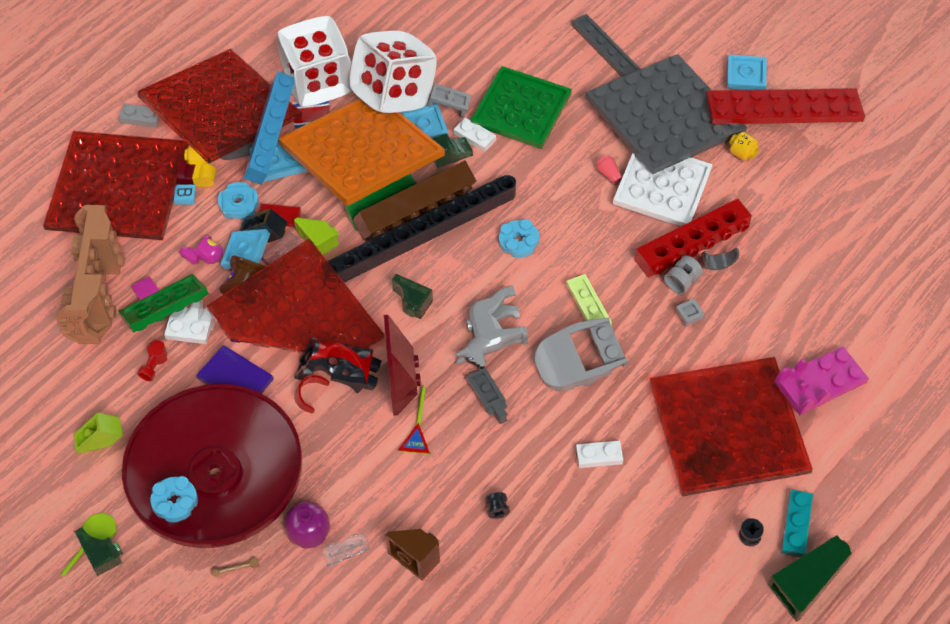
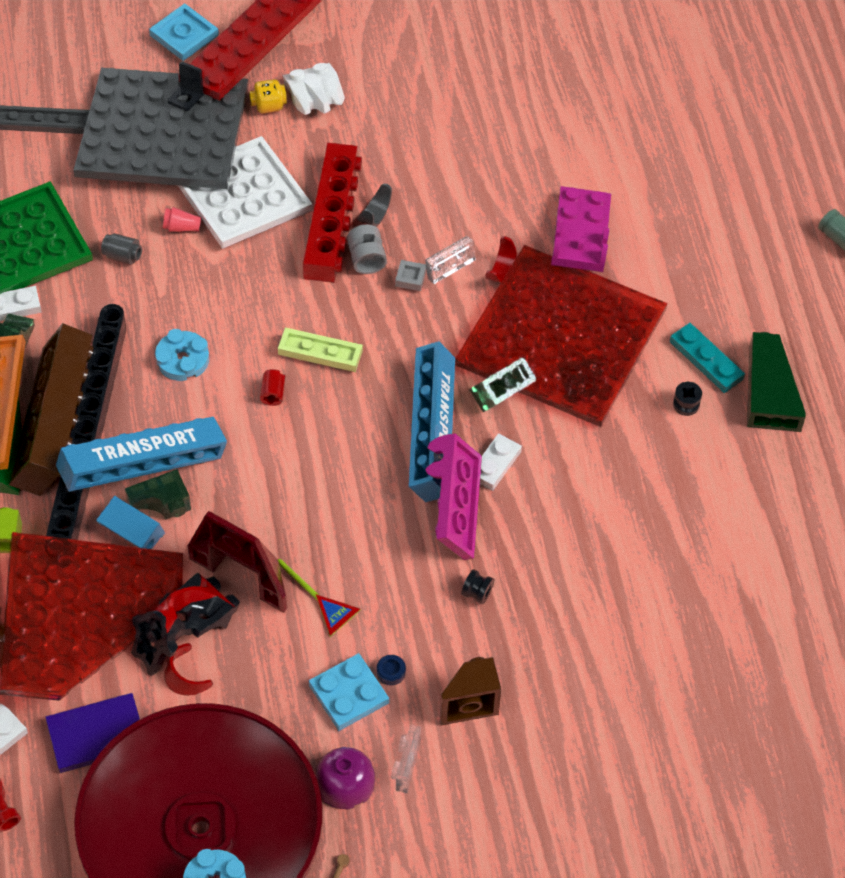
camera: 55 degrees left, 0 degrees up
(367, 487) = (349, 692): none -> medium azure plate
(379, 295) = (130, 524): none -> dark azure hinge
(401, 499) = (391, 670): none -> dark blue tile
(423, 263) = (140, 453): none -> dark azure brick
(487, 332) = (268, 457): light grey animal -> none
(488, 394) = (343, 508): dark grey hinge -> none
(538, 298) = (272, 387): none -> red piece
(546, 446) = (459, 493): none -> dark pink hinge
(561, 155) = (121, 248): none -> dark grey brick
(561, 365) = (363, 417): light grey slope -> none
(589, 397) = (430, 415): none -> dark azure brick
(654, 416) = (503, 384): none -> clear green arch
(704, 103) = (190, 84): none -> black bracket
(722, 324) = (450, 259): none -> clear plate
(756, 353) = (505, 258): none -> red helmet
(777, 165) = (314, 88): none -> white plate

